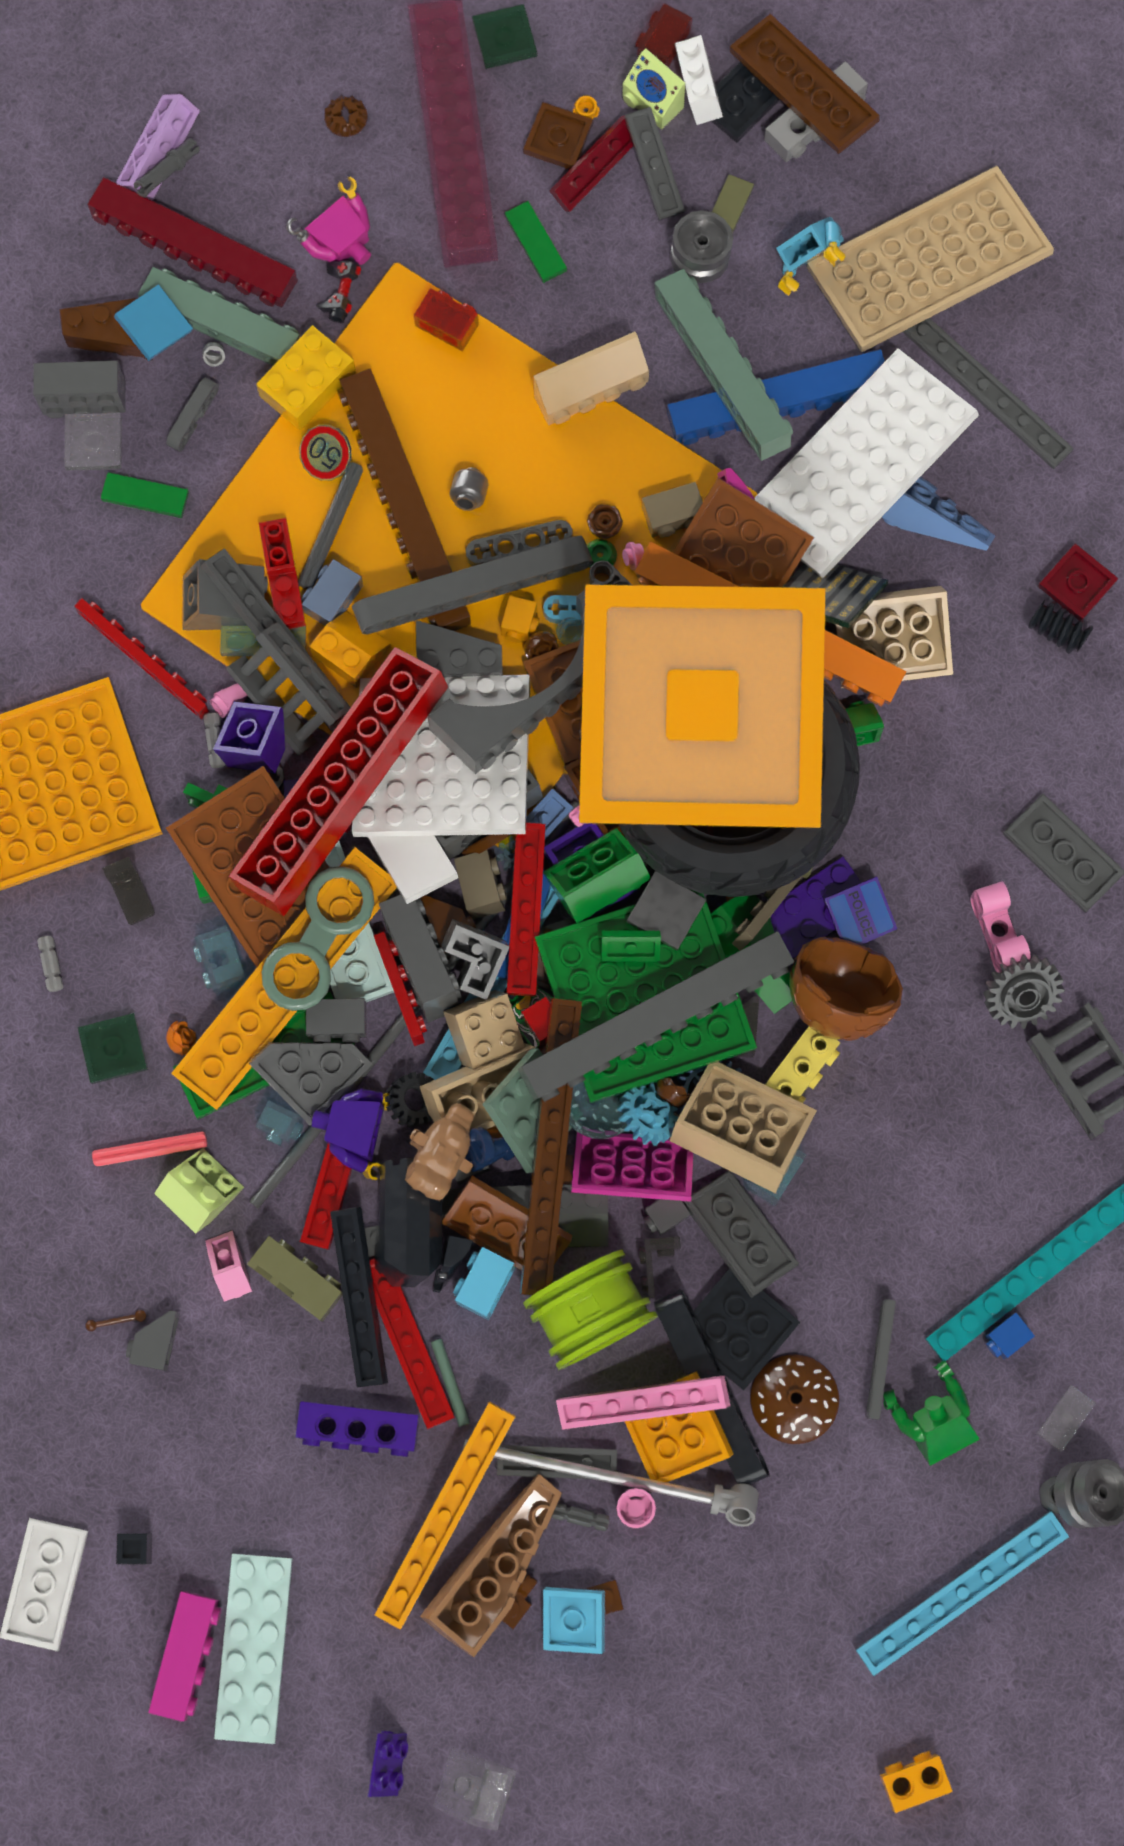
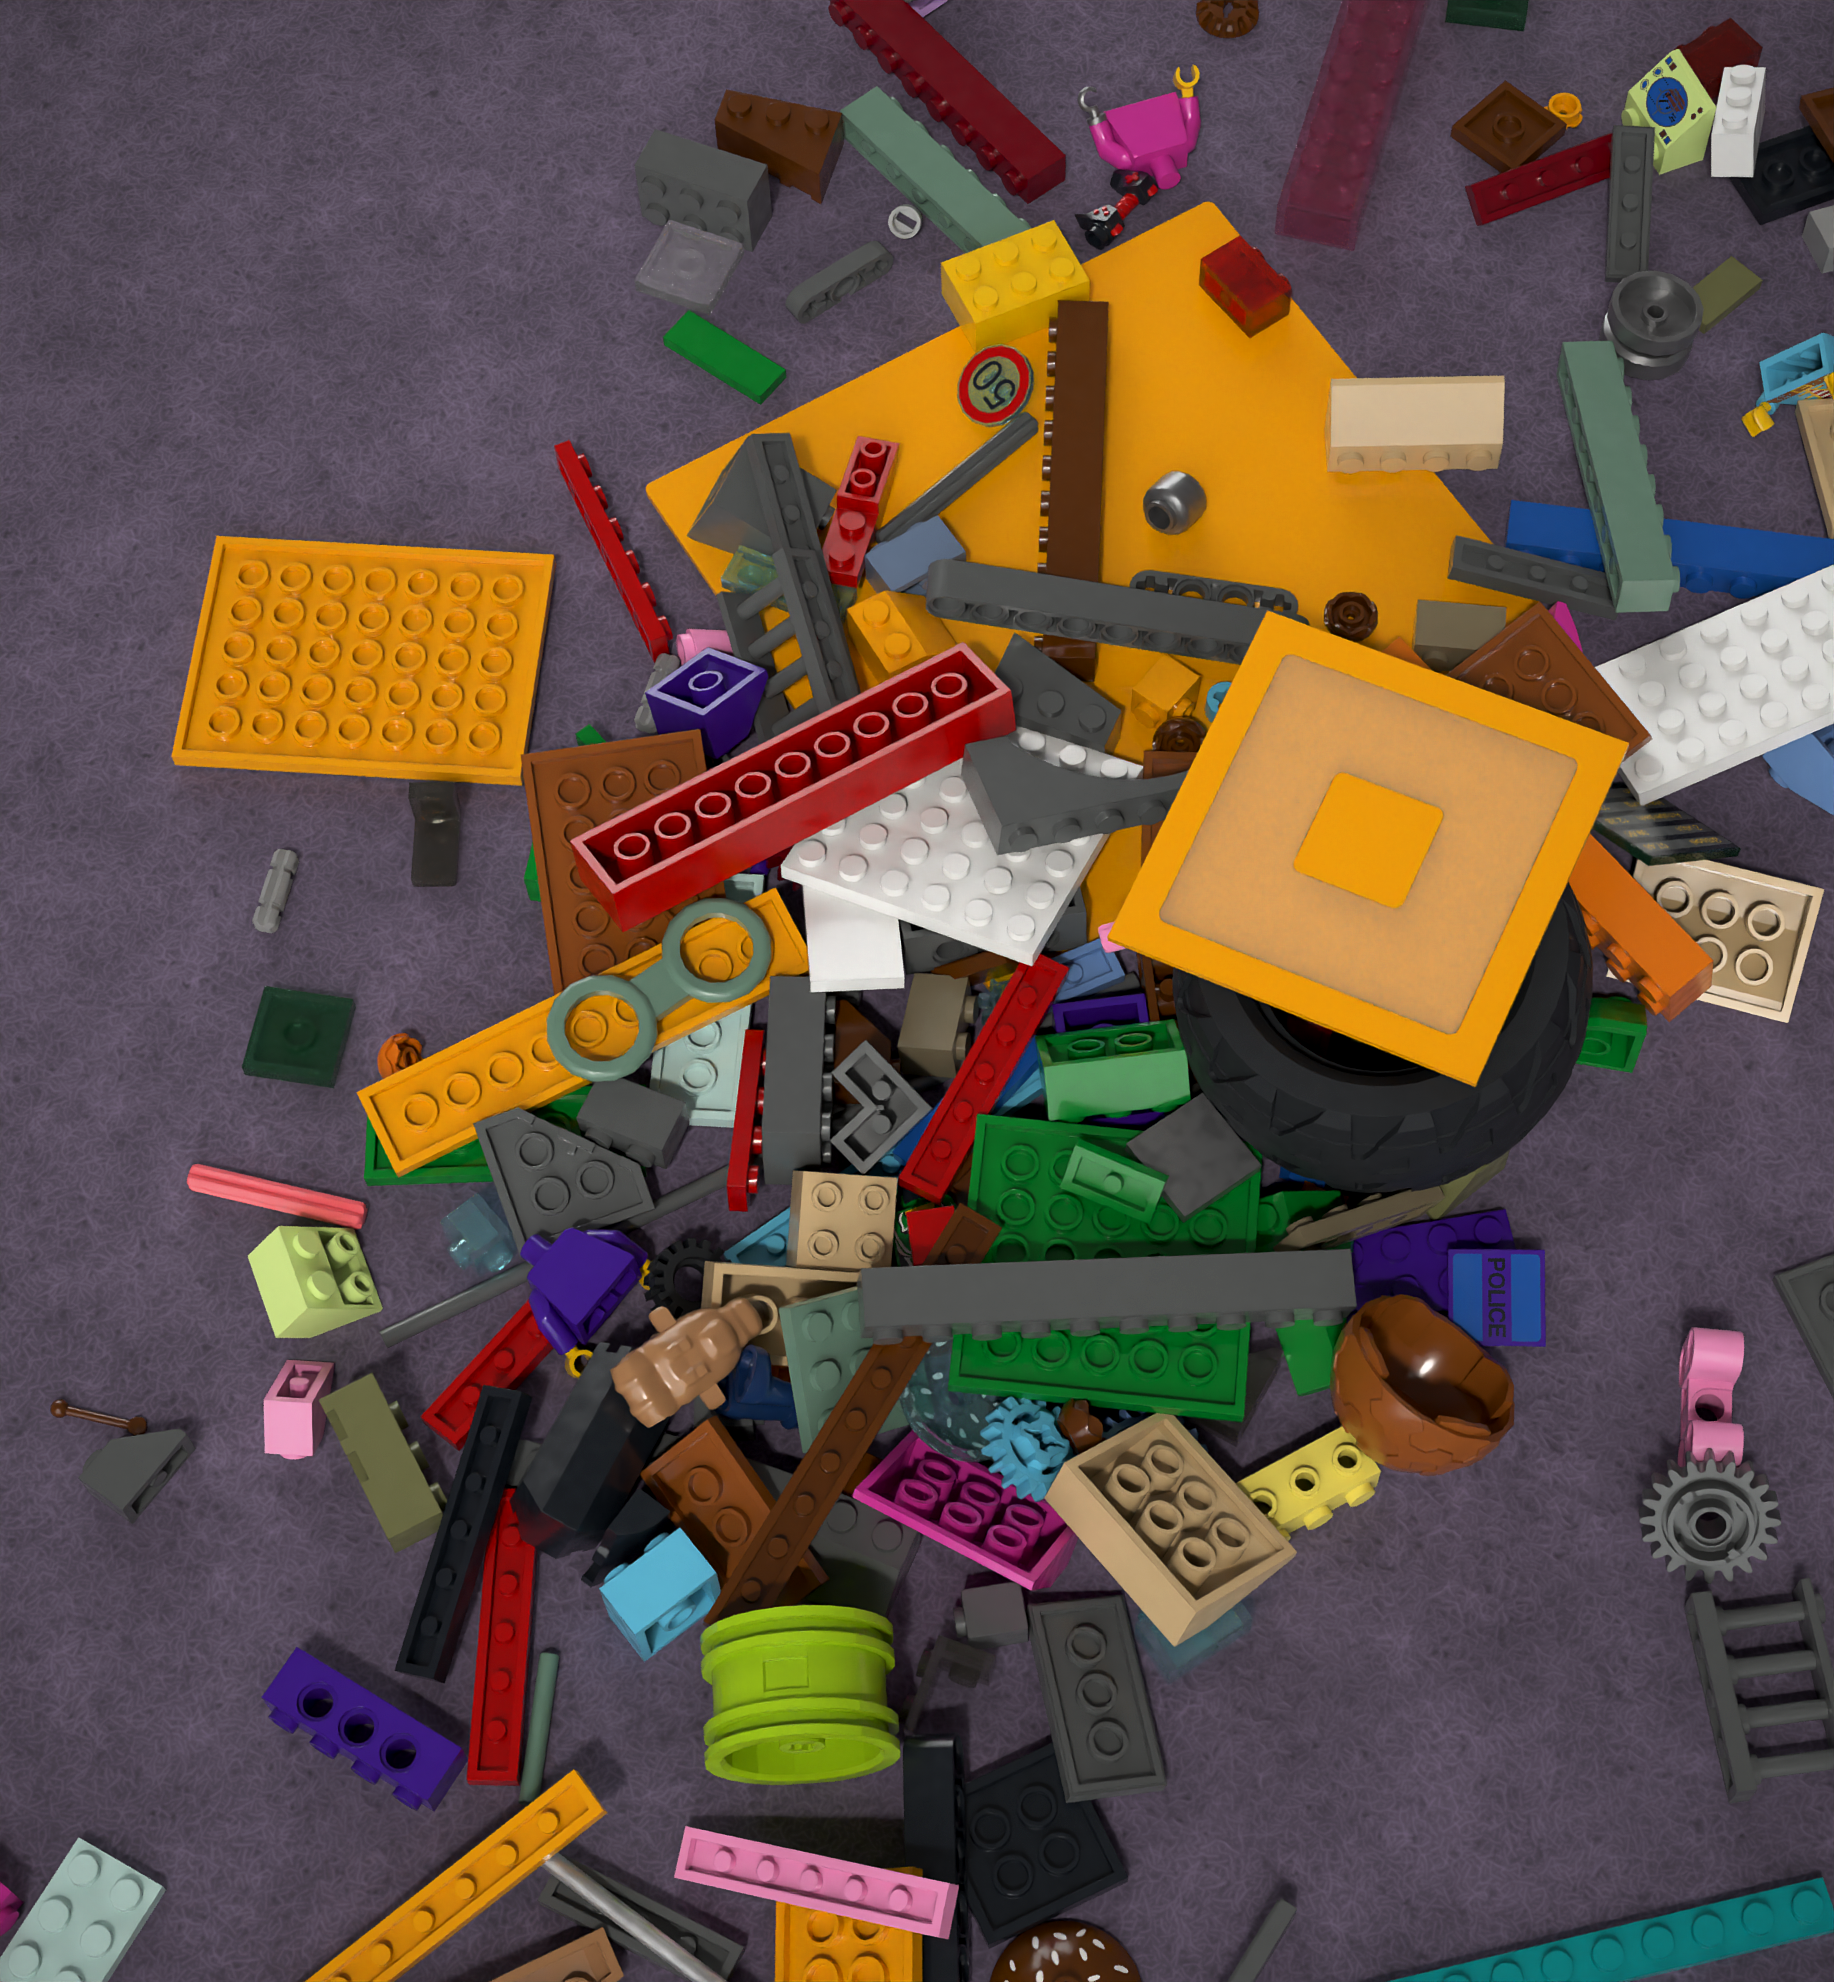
camera: 25 degrees right, 15 degrees down
(153, 322) = (841, 145): dark azure tile -> none
(219, 943) = (513, 954): clear light blue brick -> none
(535, 242) = (1417, 245): green tile -> none
(698, 450) = (1530, 576): none -> dark grey plate

